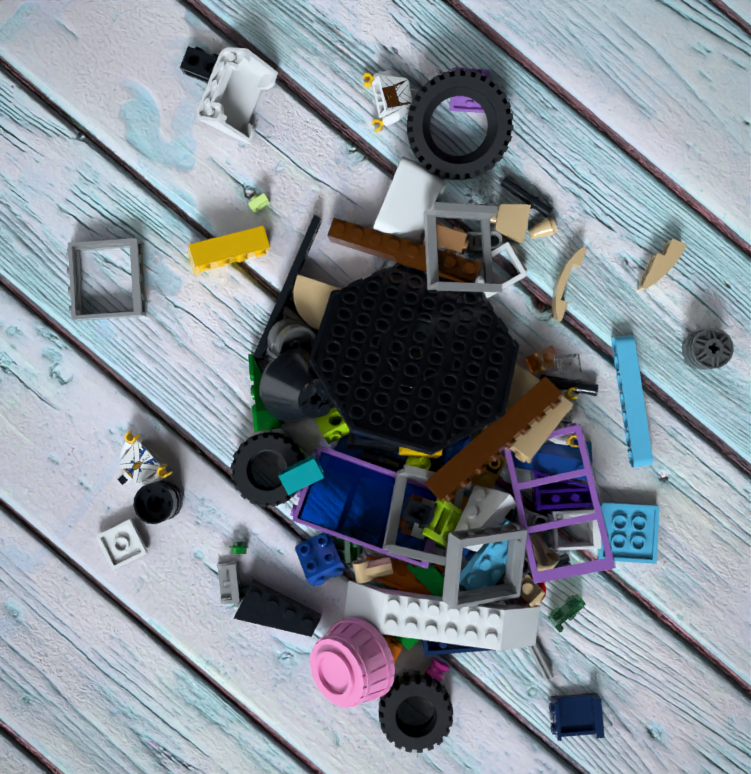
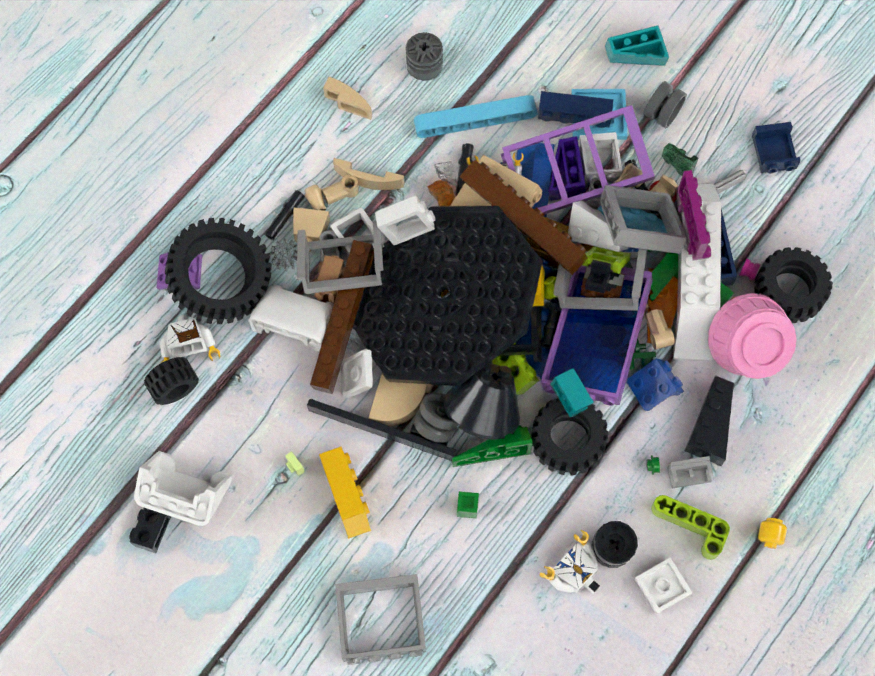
camera: 95 degrees left, 20 degrees down
(164, 653) = (772, 532): none -> yellow head
(180, 576) = (692, 513): none -> lime beam
(206, 366) = (467, 505): none -> green panel
(344, 81) = (171, 380): none -> black tyre
(344, 265) = (357, 373): none -> white plate
(463, 620) = (694, 217): none -> magenta plate
(500, 317) = (402, 210): none -> white window
(551, 252) = (340, 190): none -> tan piece
(631, 507) = (573, 108): none -> dark blue brick
(632, 604) = (665, 104): none -> dark grey wheel
(707, 584) = (638, 47): none -> teal wedge

